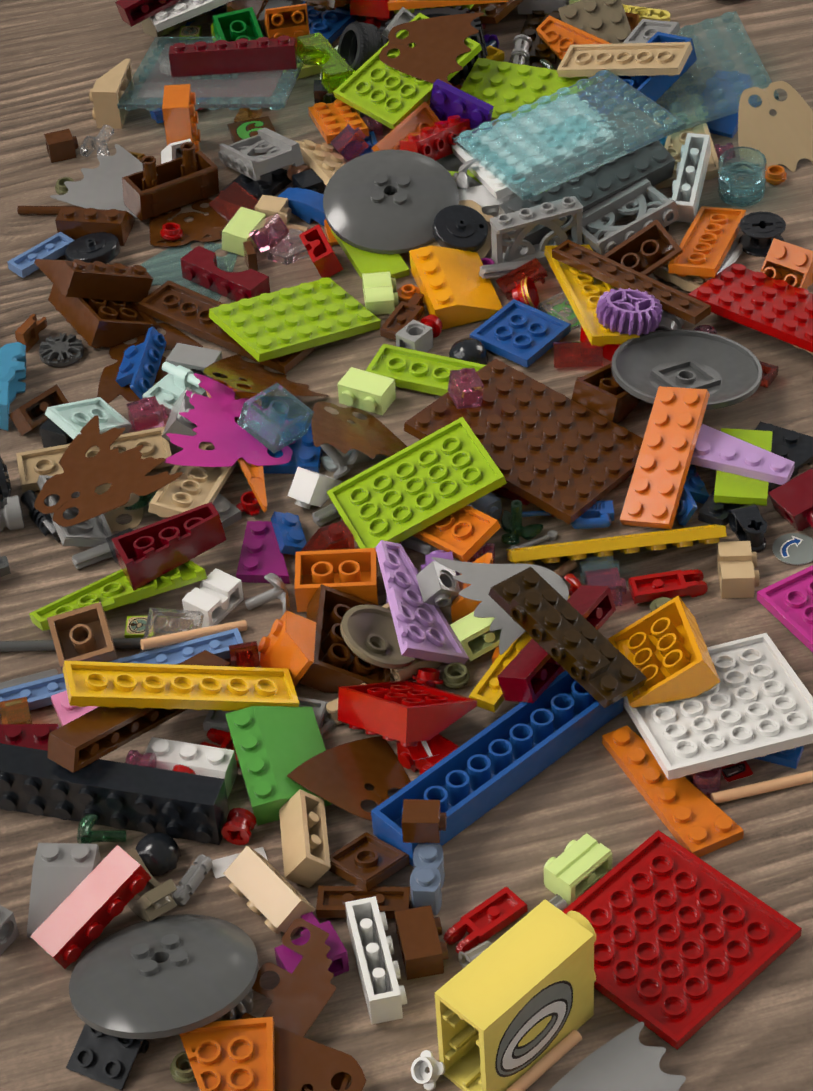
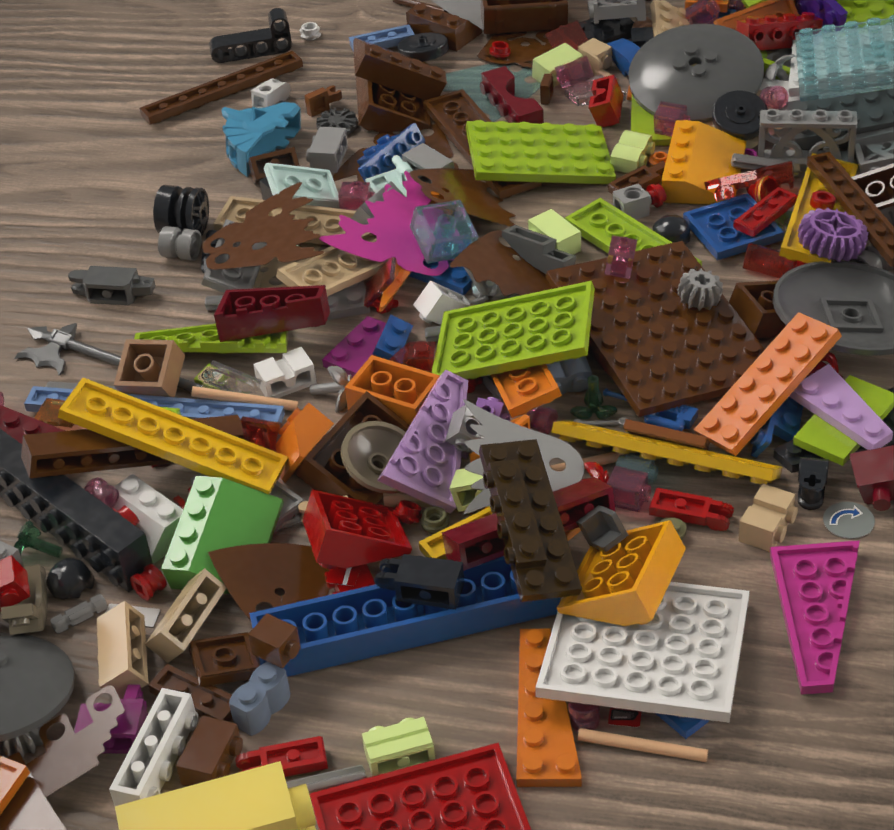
camera: 30 degrees right, 0 degrees up
(76, 377) = (327, 148): none -> light grey brick
(243, 485) = (380, 282): none -> clear red piece
(368, 409) = (537, 249): none -> dark grey slope
(397, 250) = (666, 116): none -> clear pink brick
(484, 203) = (774, 97): none -> clear pink brick
(495, 295) = (724, 184): none -> clear red plate
(509, 722) = (423, 580): none -> black hinge
(543, 311) = (765, 212): none -> red tile
(550, 395) = (700, 289): none -> light grey gear
(592, 285) = (822, 200): none -> red tile
(602, 531) = (666, 434): none -> dark orange tile
(619, 624) = (602, 528): none -> dark grey panel

